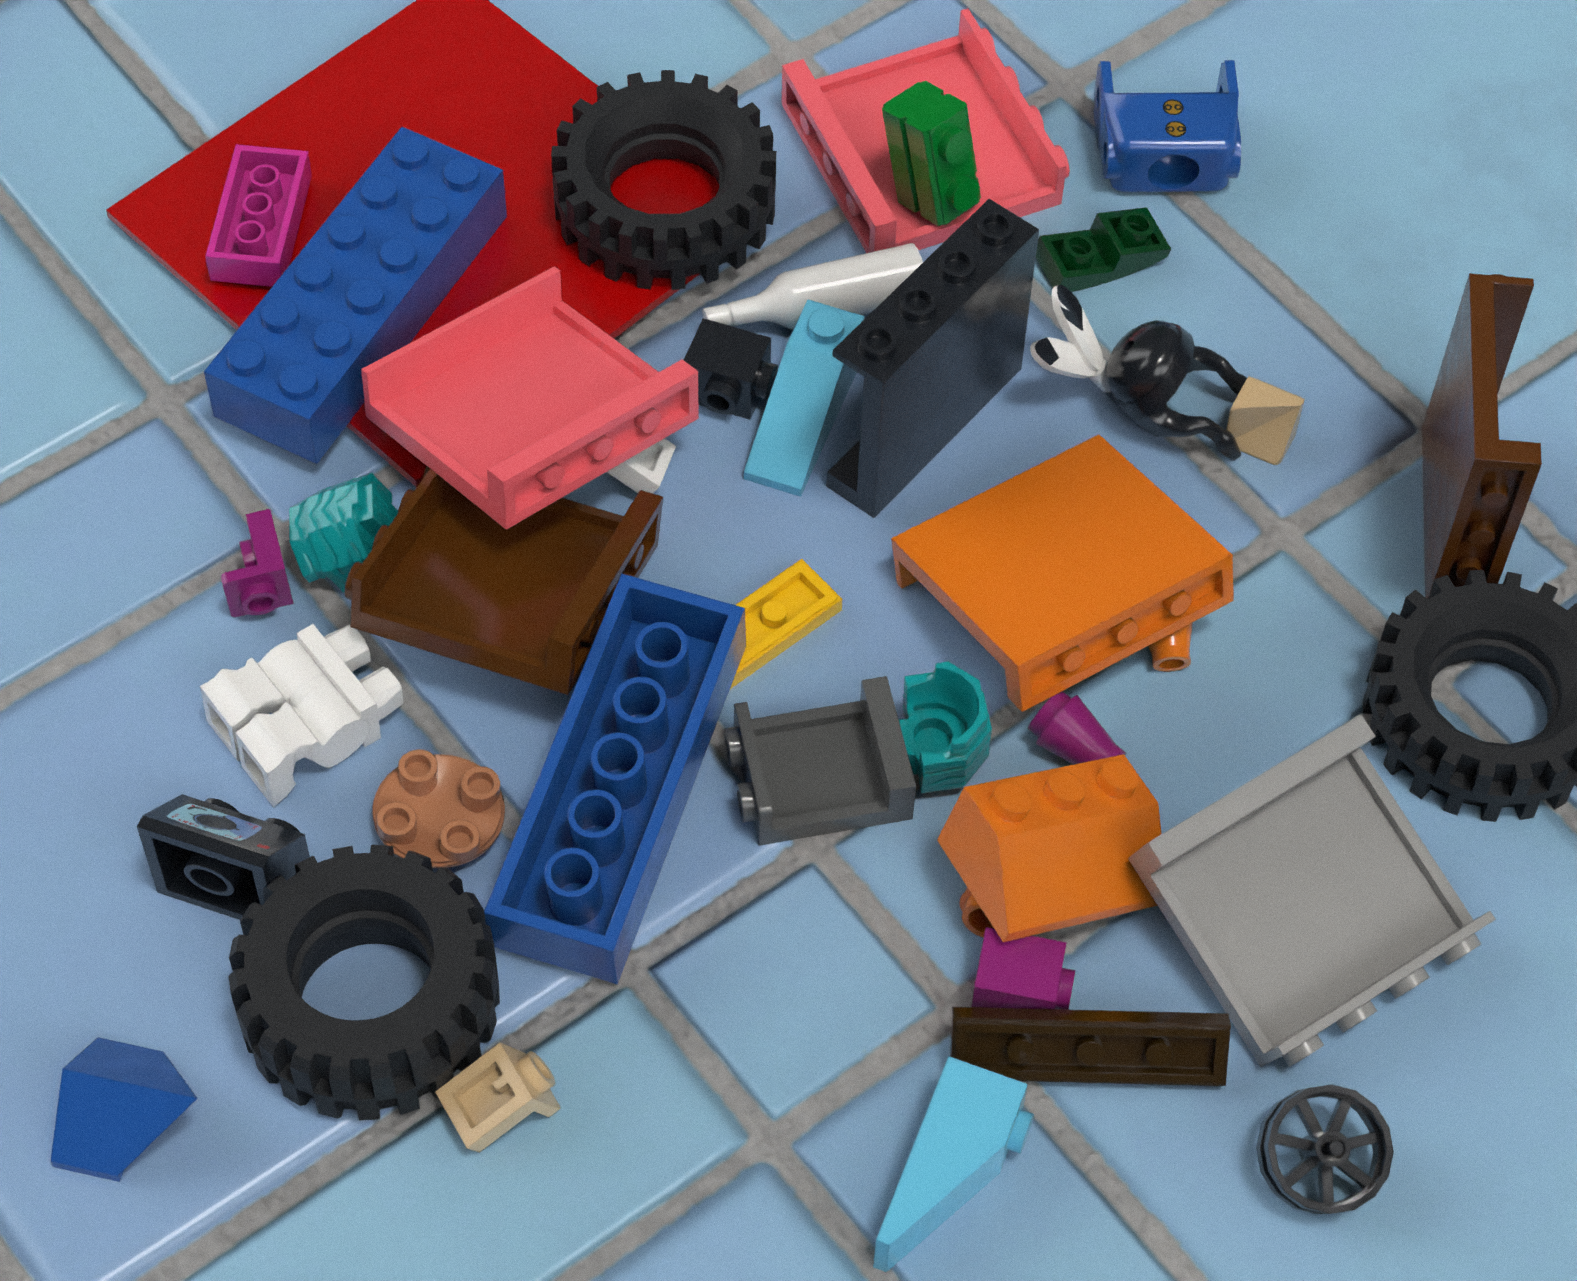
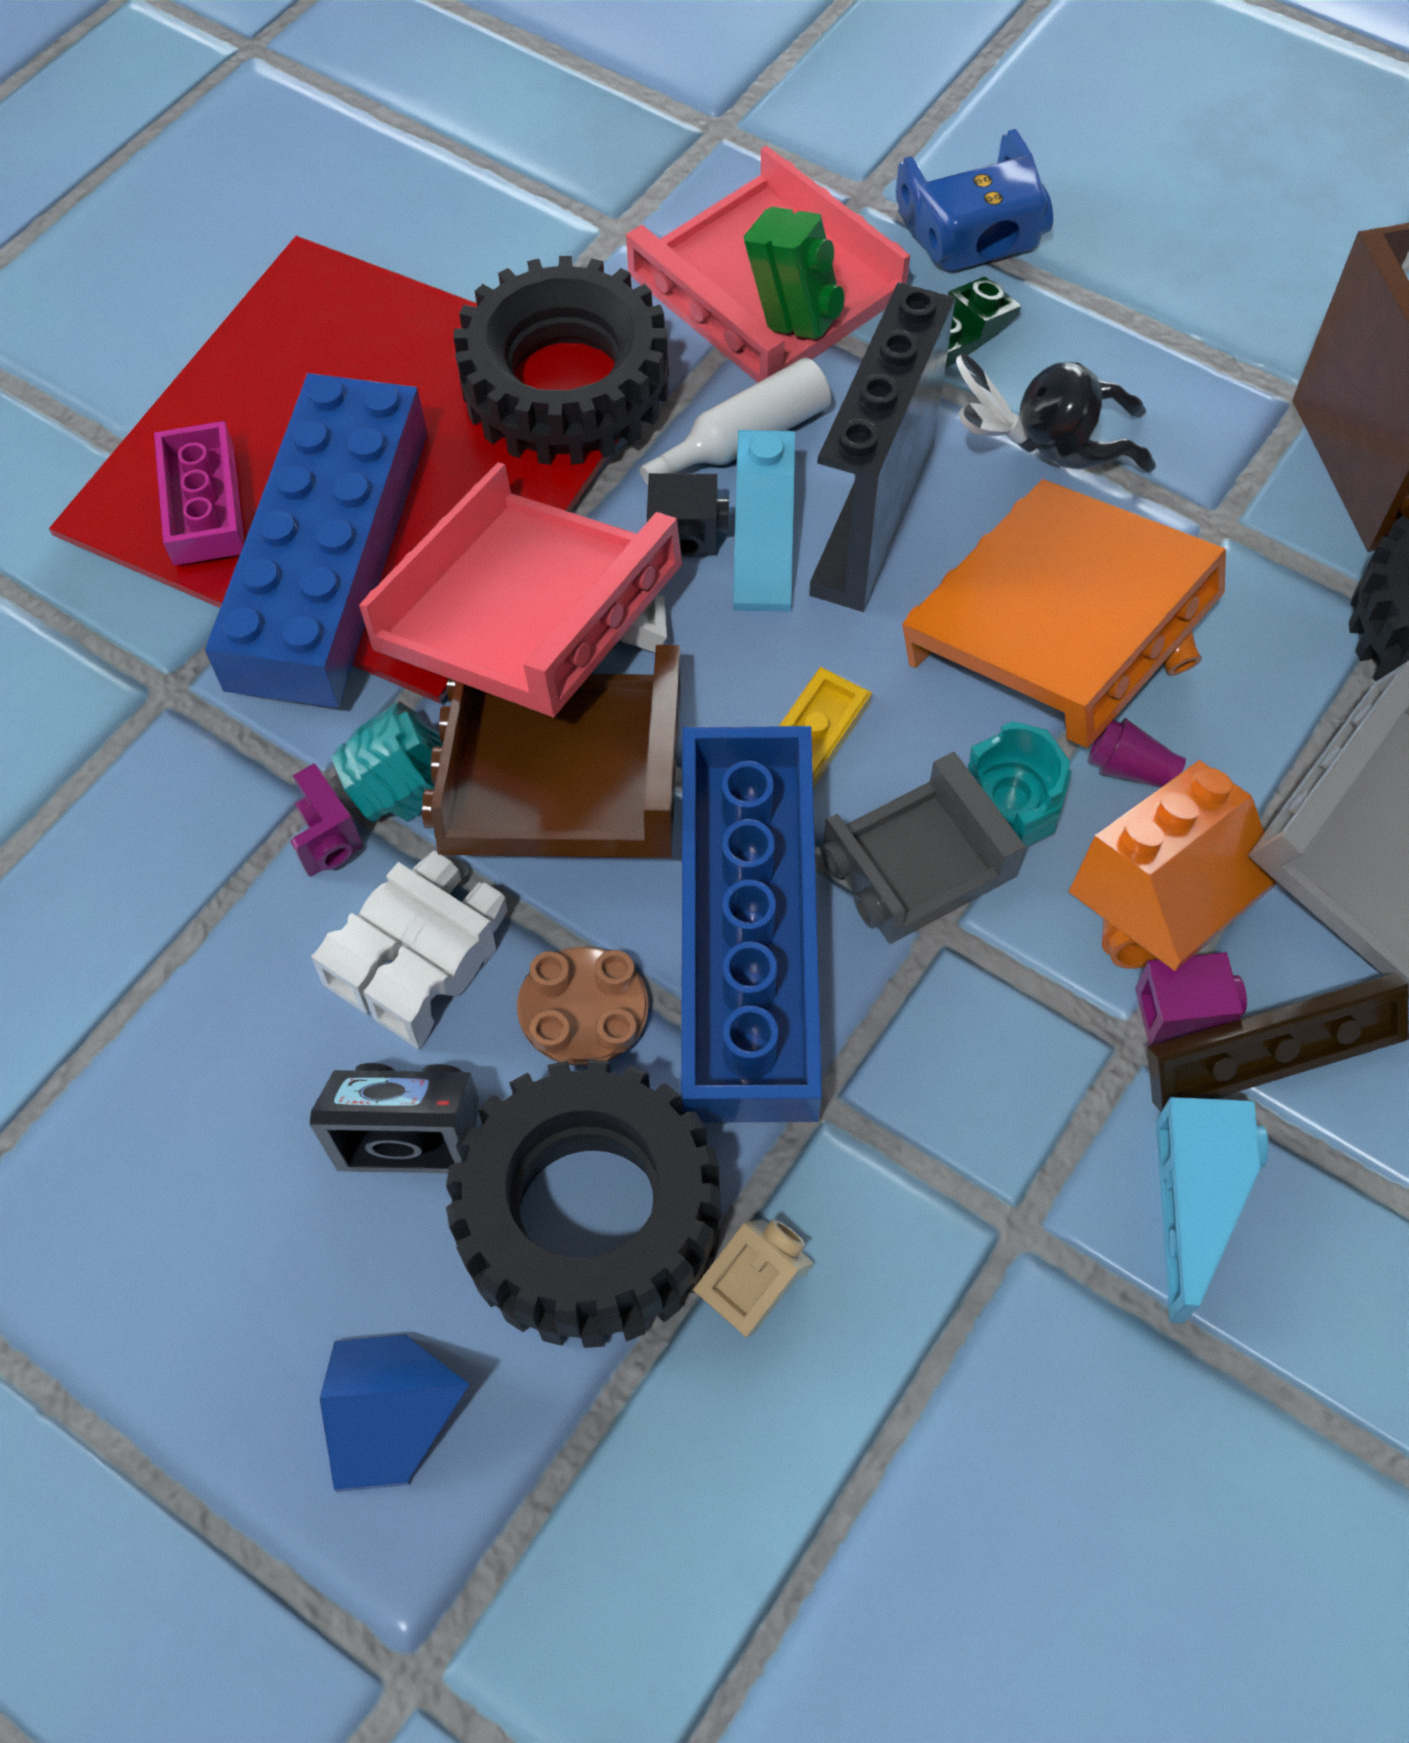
camera: 15 degrees left, 5 degrees up
(1264, 420) = (1169, 428): tan slope -> none

